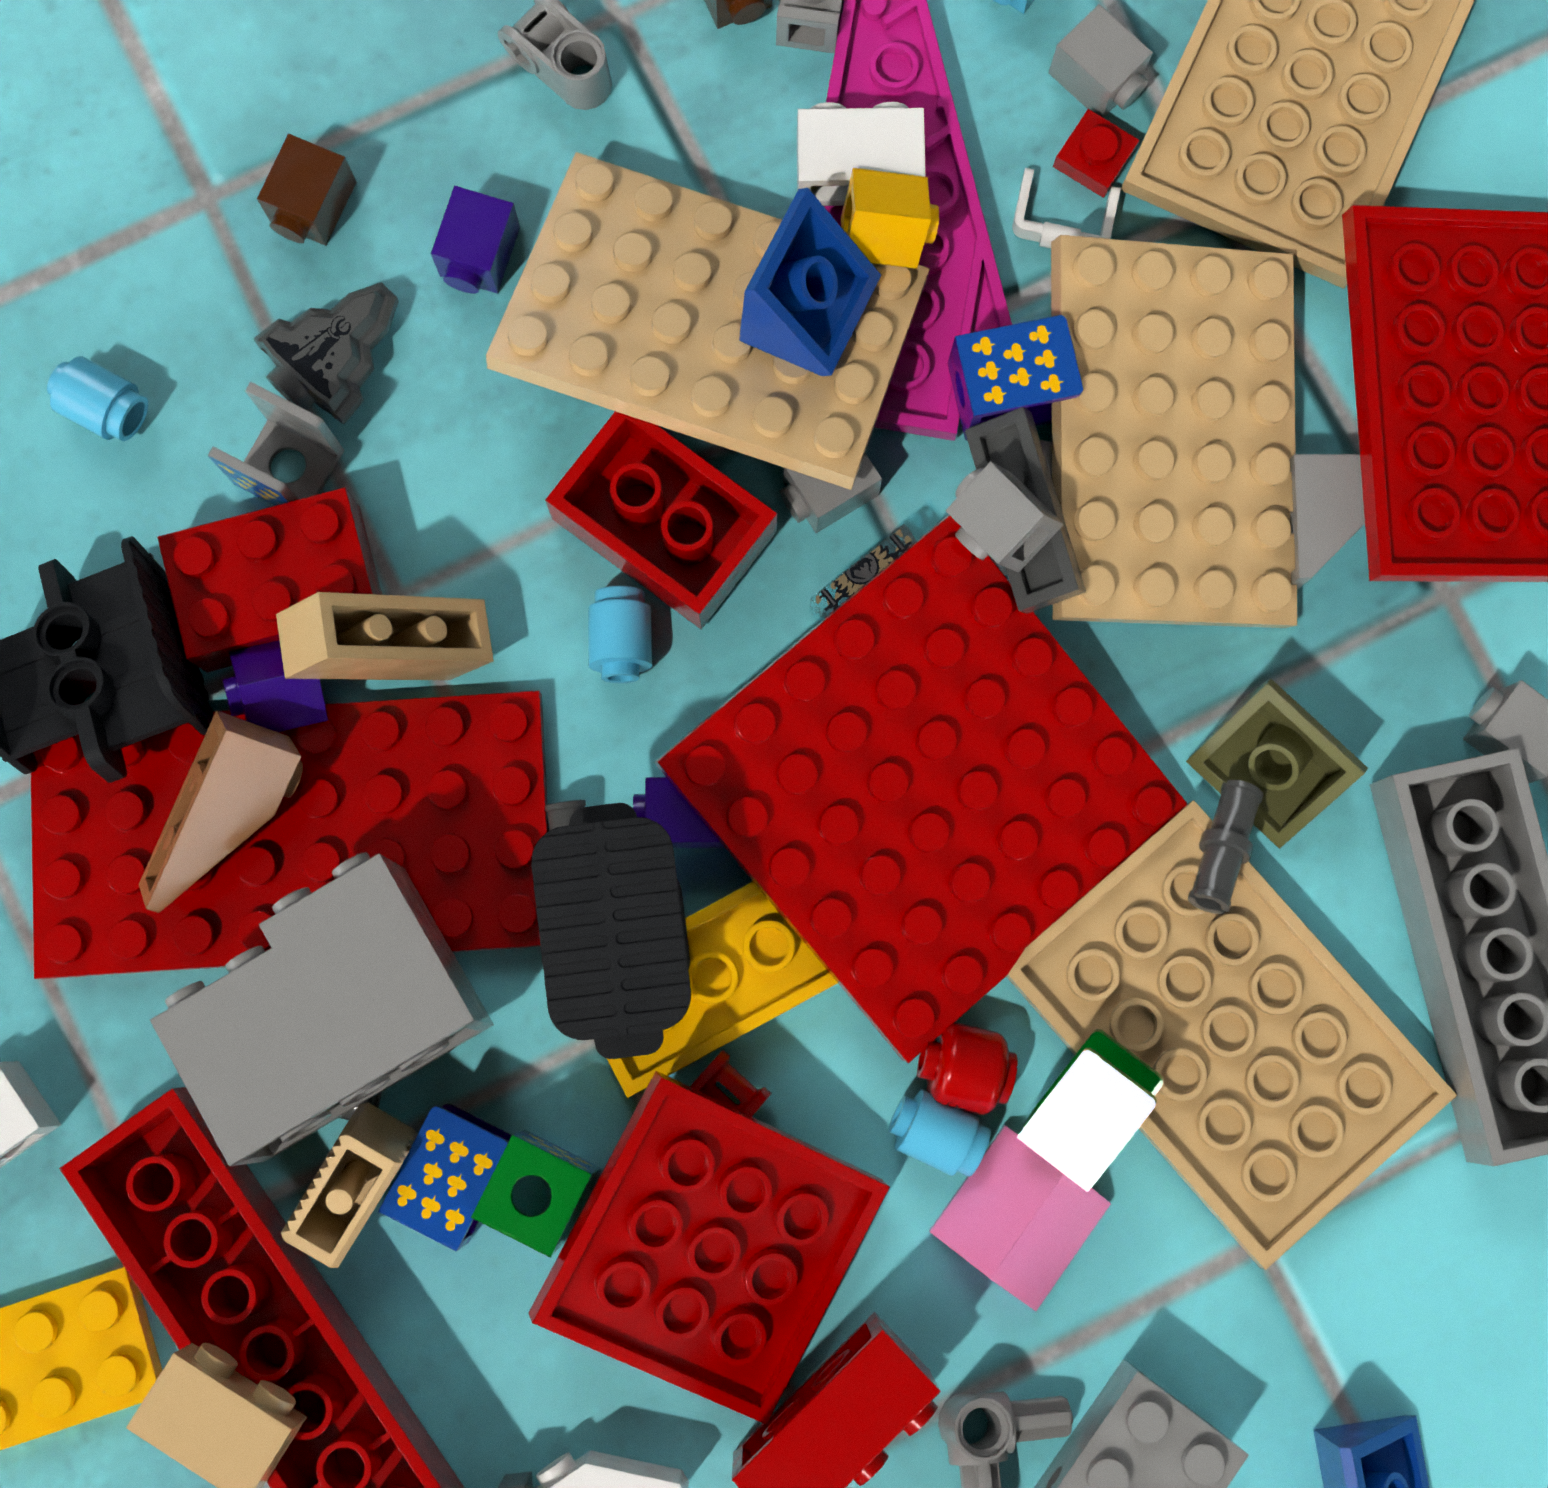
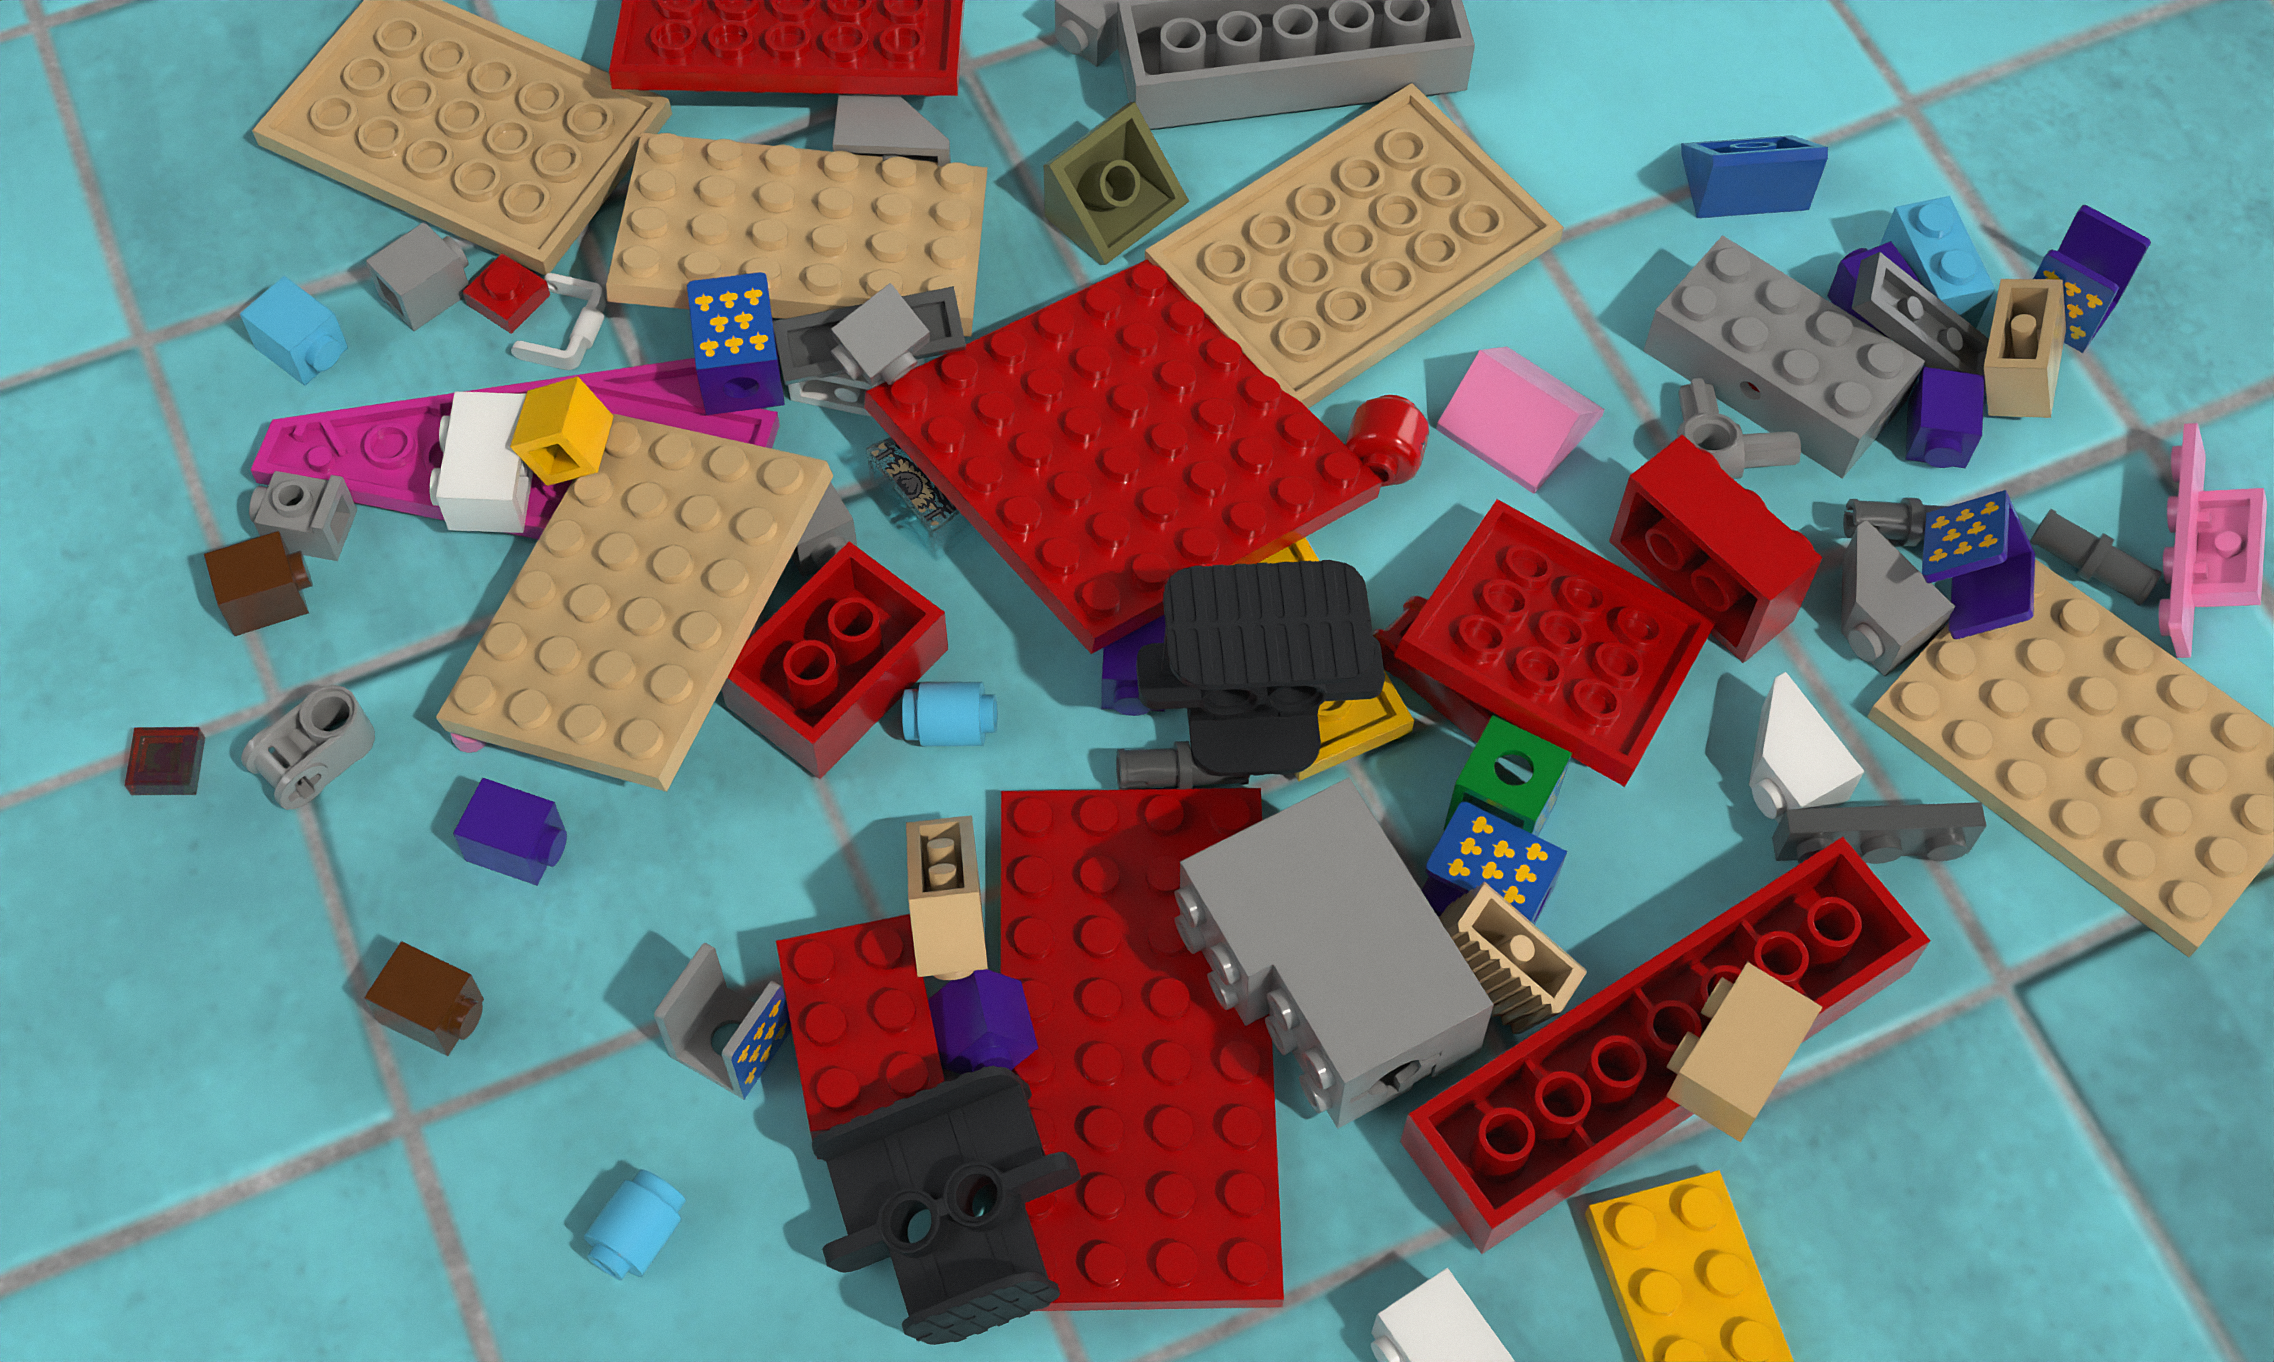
camera: 85 degrees left, 20 degrees down
(223, 801) = (1116, 1071): medium nougat slope -> none
(329, 352) = (609, 984): dark grey rock -> none
(807, 289) = (630, 491): blue slope -> none
(939, 1134) = (1446, 467): medium azure brick -> none
(1092, 1109) = (1426, 329): piece -> none
(1225, 847) = (1191, 220): dark grey pin -> none

